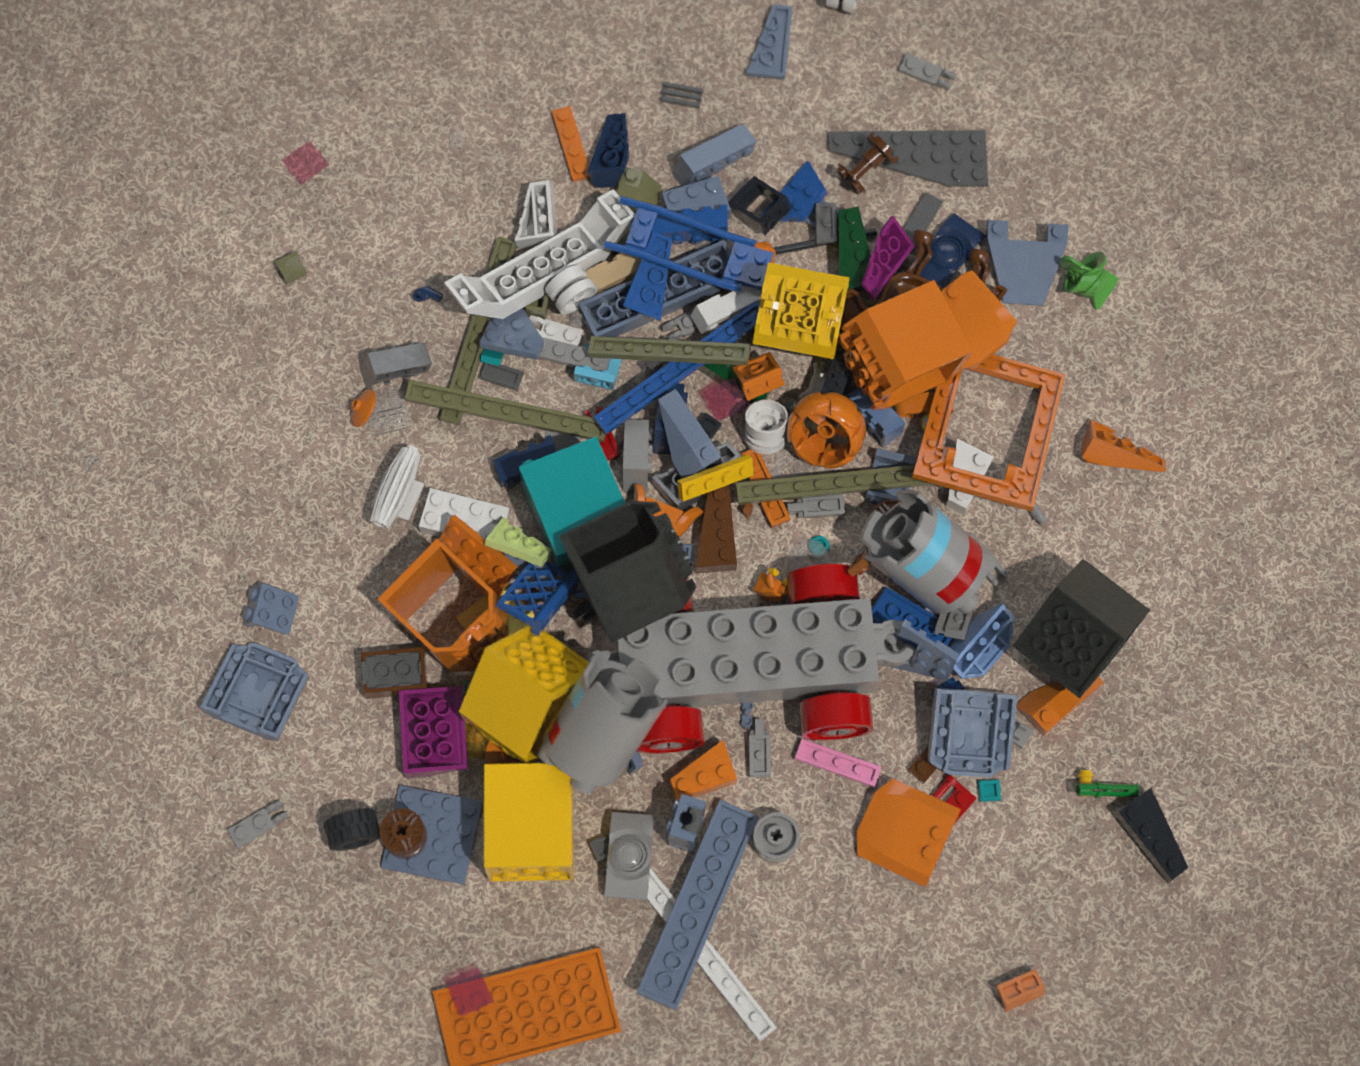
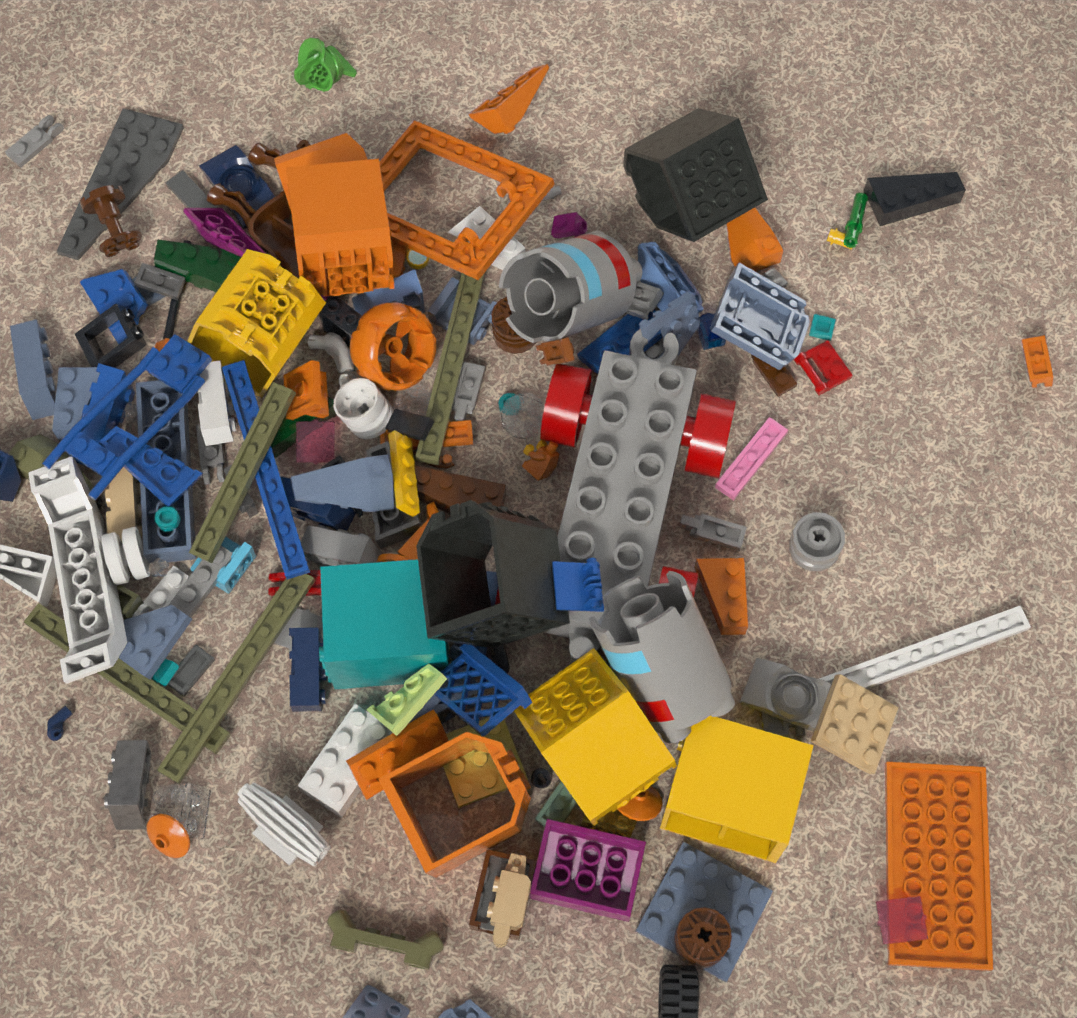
camera: 70 degrees left, 5 degrees down
(330, 623) = (347, 937): none -> olive plate
(386, 676) = (510, 901): none -> tan hinge
(613, 309) = (167, 518): none -> teal tile
(622, 911) = (854, 724): none -> tan plate
(641, 637) = (578, 586): none -> blue hinge
(688, 818) = (780, 622): sand blue piece -> none
(697, 905) = (871, 643): sand blue plate -> none
(746, 718) = (675, 534): sand blue piece -> none
(763, 468) = (410, 424): none -> black tile
(905, 830) = (844, 414): orange wedge -> none
(1008, 542) = (568, 225): none -> magenta bracket
(1024, 265) = (283, 117): sand blue wedge -> none

